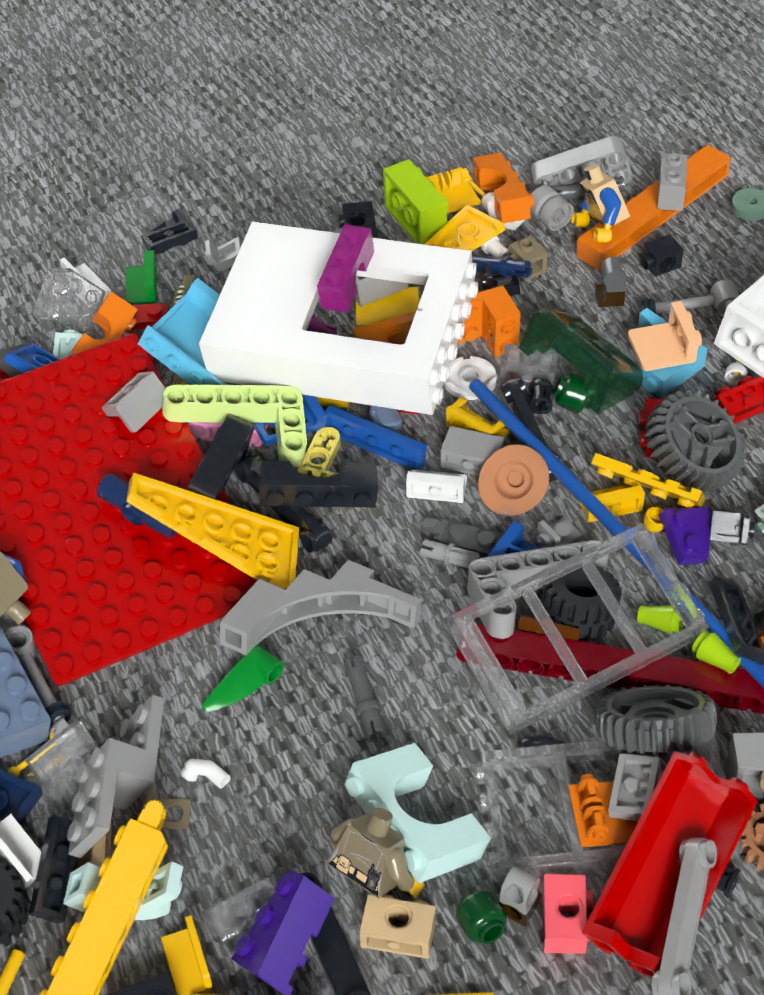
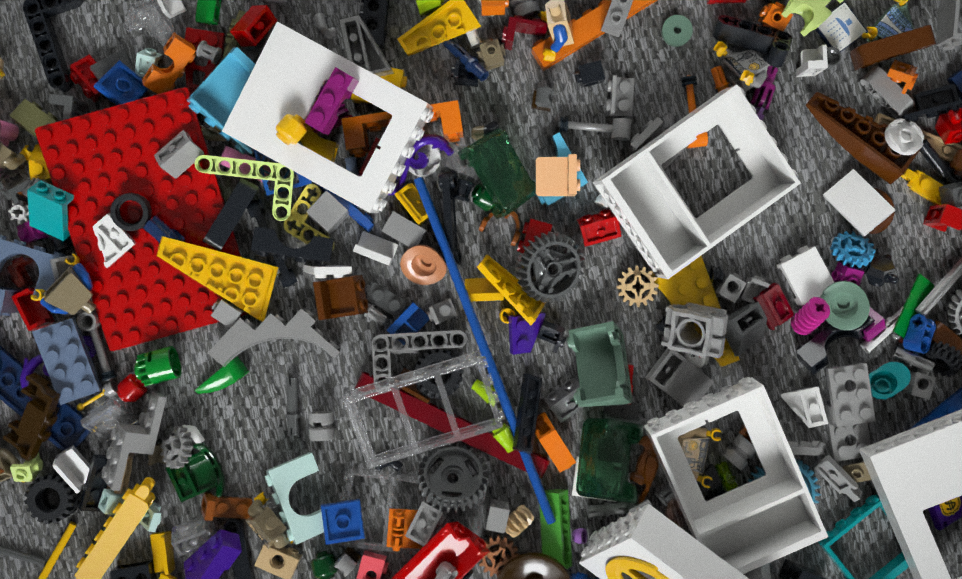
camera: 10 degrees right, 40 degrees up
(51, 517) = (112, 240): none -> white wing
(75, 458) = (116, 216): none -> black tyre
(101, 718) = (131, 389): none -> red head
(138, 677) = (158, 366): none -> green gear
(150, 314) = (214, 55): none -> light grey bush
(188, 779) = (176, 447): none -> light grey gear
(212, 274) = (253, 25): none -> red brick
(225, 823) = (198, 475): none -> dark green piece
(233, 582) = (226, 312): none -> light grey brick
(277, 856) = (224, 506): none -> dark orange bracket
(297, 309) = (291, 129): none -> yellow head
(357, 441) = (328, 213): none -> light grey head
(372, 511) = (322, 271): none -> white wing
(406, 539) = (340, 297): none -> reddish brown panel
(418, 709) = (323, 432): none -> light grey wheel
(473, 369) = (423, 160): none -> dark purple plant
(495, 823) = (342, 521): none -> blue tile
(561, 221) = (522, 25): none -> dark red bracket
(614, 411) = (516, 235): none -> dark orange piece
(707, 269) = (621, 96): none -> light grey bracket

